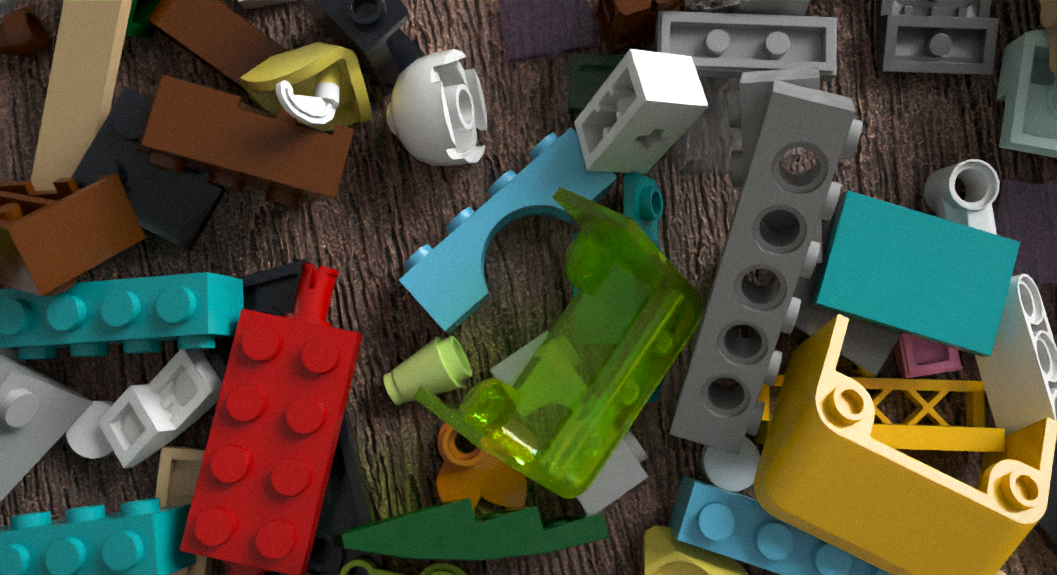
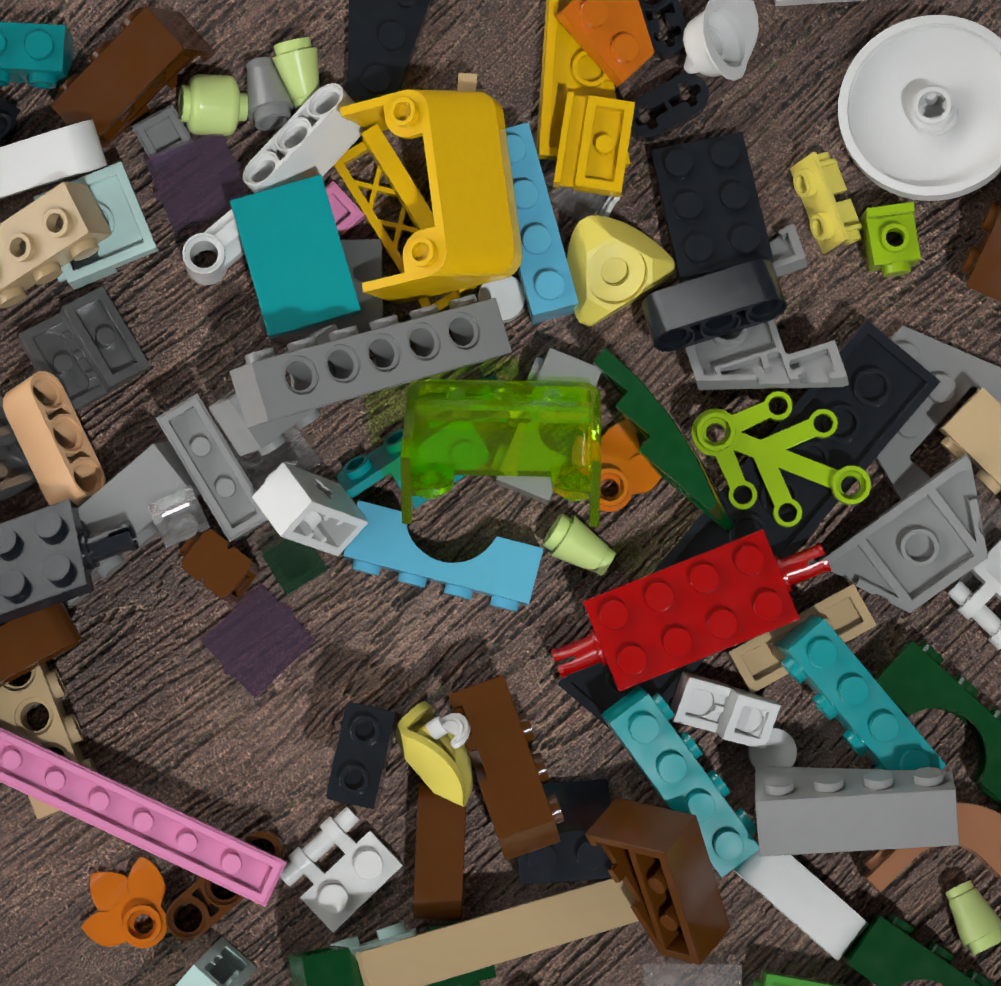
camera: 125 degrees left, 0 degrees up
(438, 110) = (390, 660): white cylinder -> none

